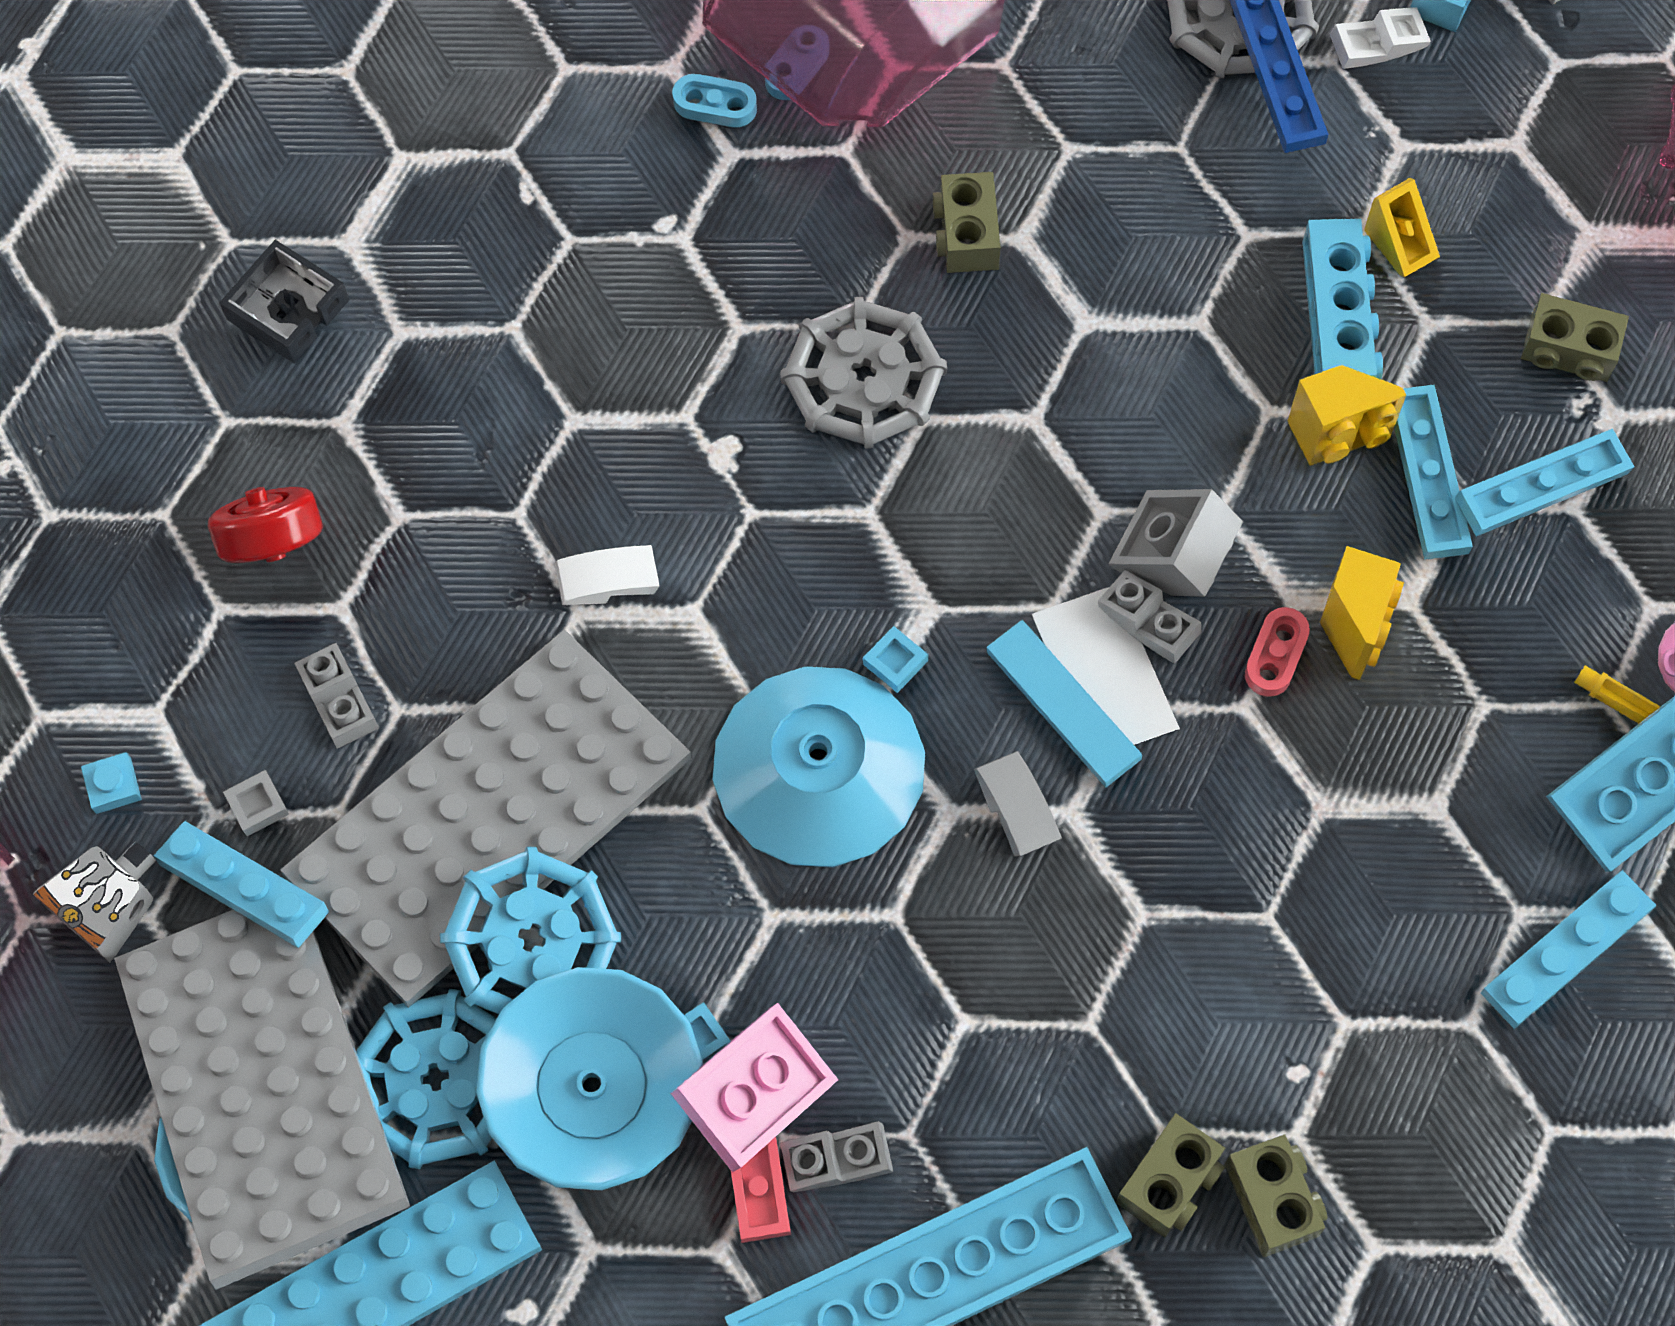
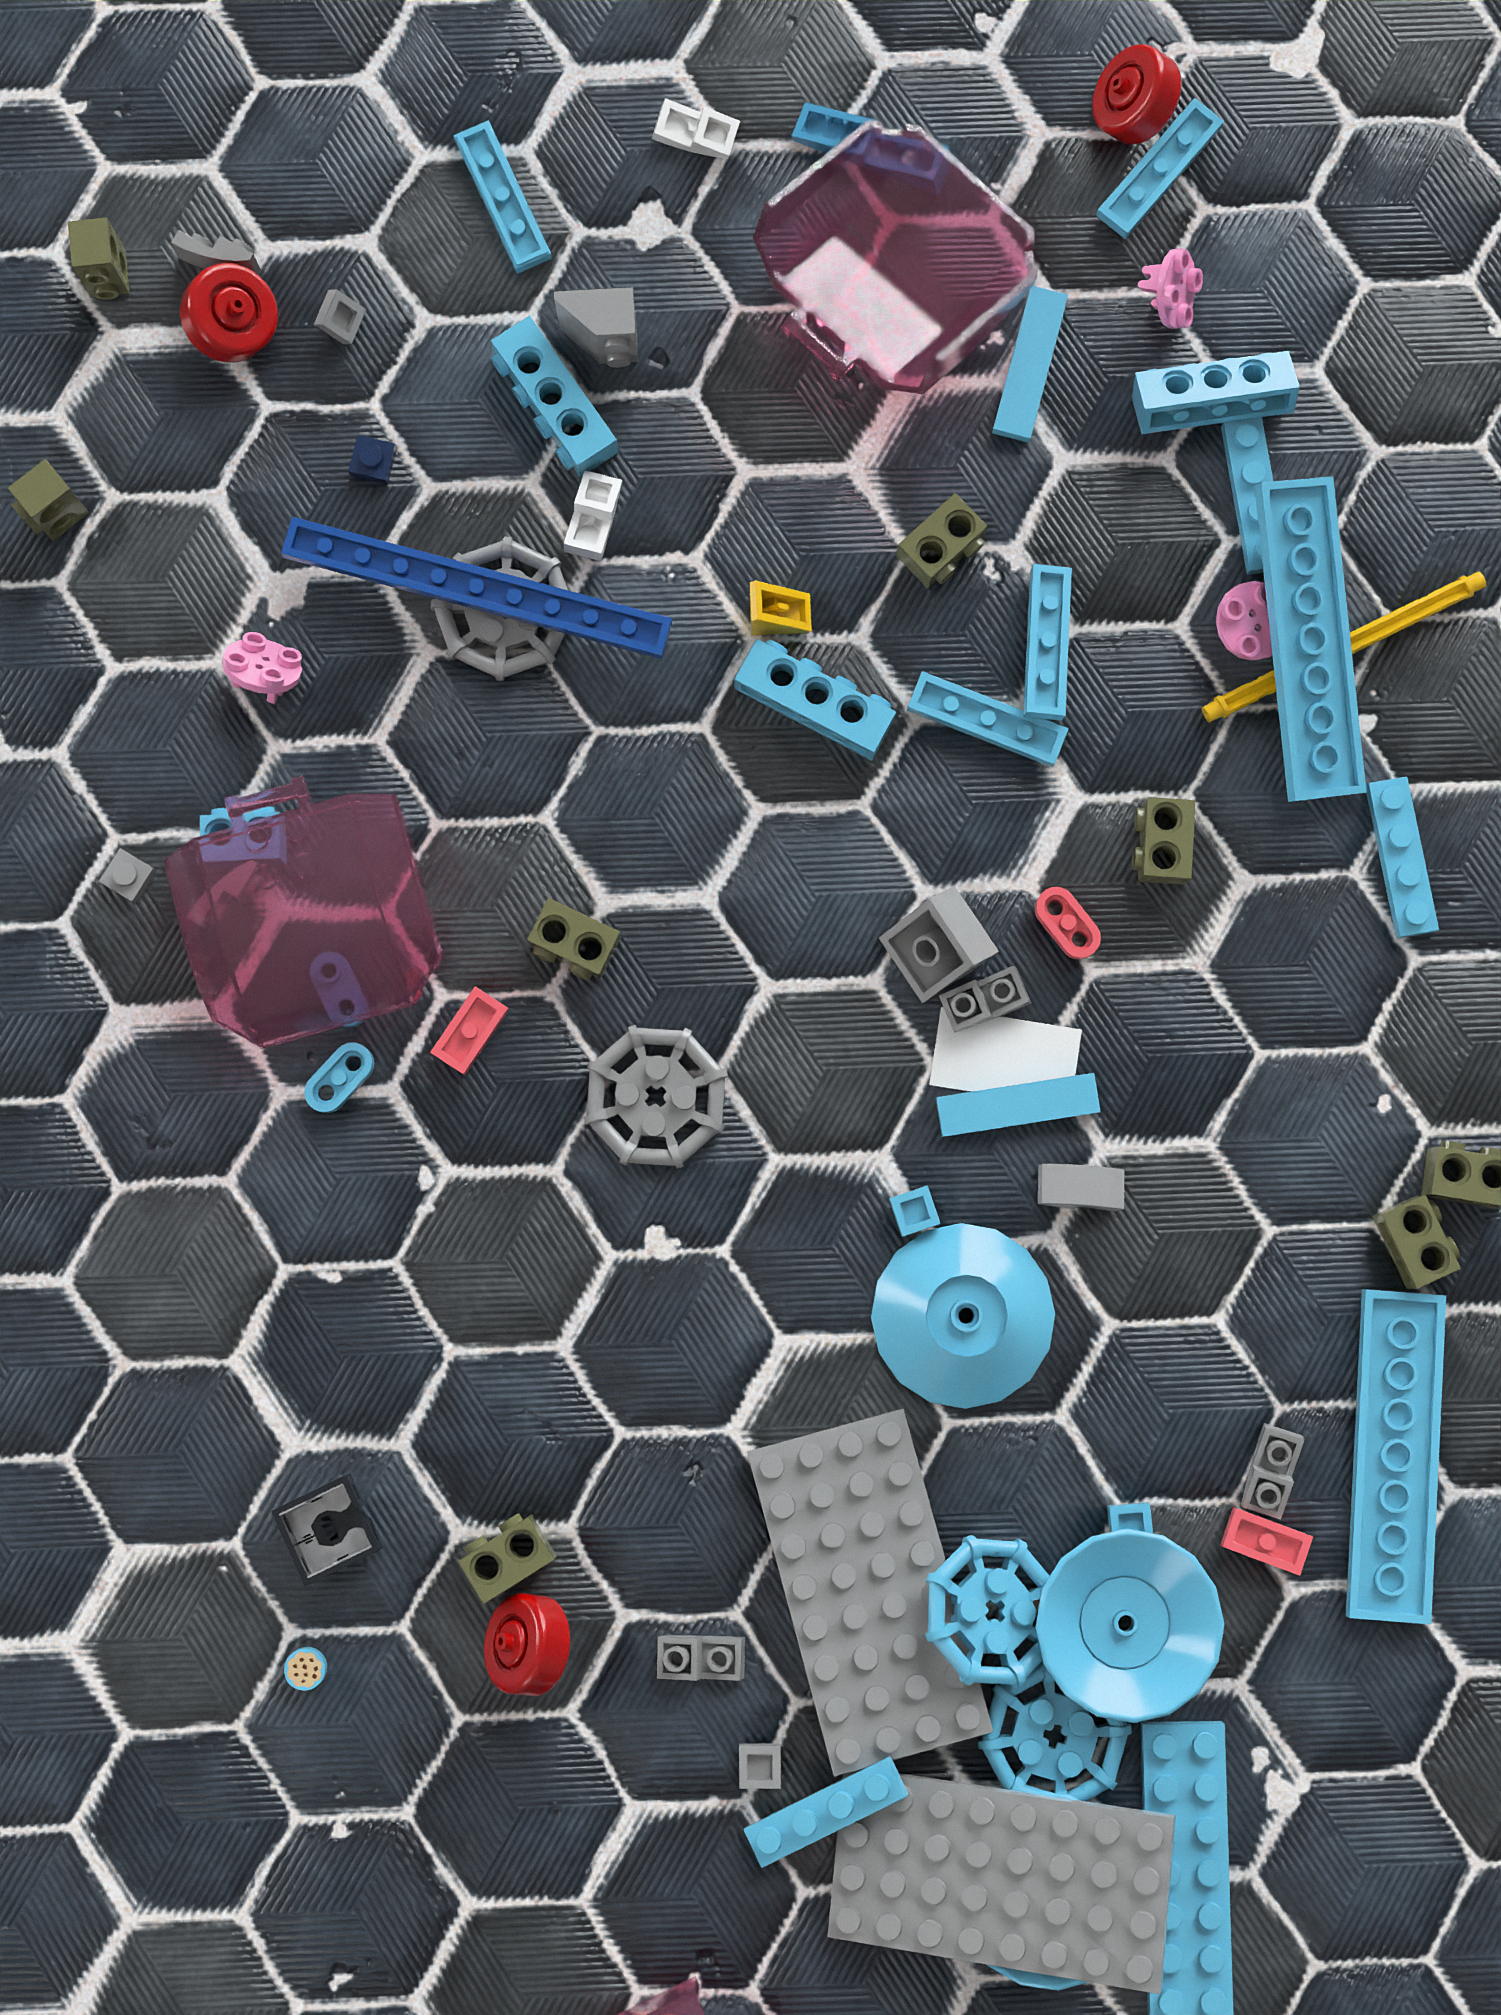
camera: 65 degrees left, 15 degrees up
(100, 897) = (774, 1925): torso -> none
(111, 783) = (676, 1871): medium azure plate -> none
(143, 356) = (305, 1668): none -> tile
(335, 474) = (512, 1566): none -> olive brick
(606, 573) = (718, 1394): white slope -> none
(754, 1087) = (1200, 1506): bright pink plate -> none
(826, 182) = (469, 1030): none -> coral plate
(1343, 412) = (910, 759): yellow slope -> none
(1361, 608) = (1077, 846): yellow slope -> none
(1429, 707) = (1174, 842): none -> olive brick

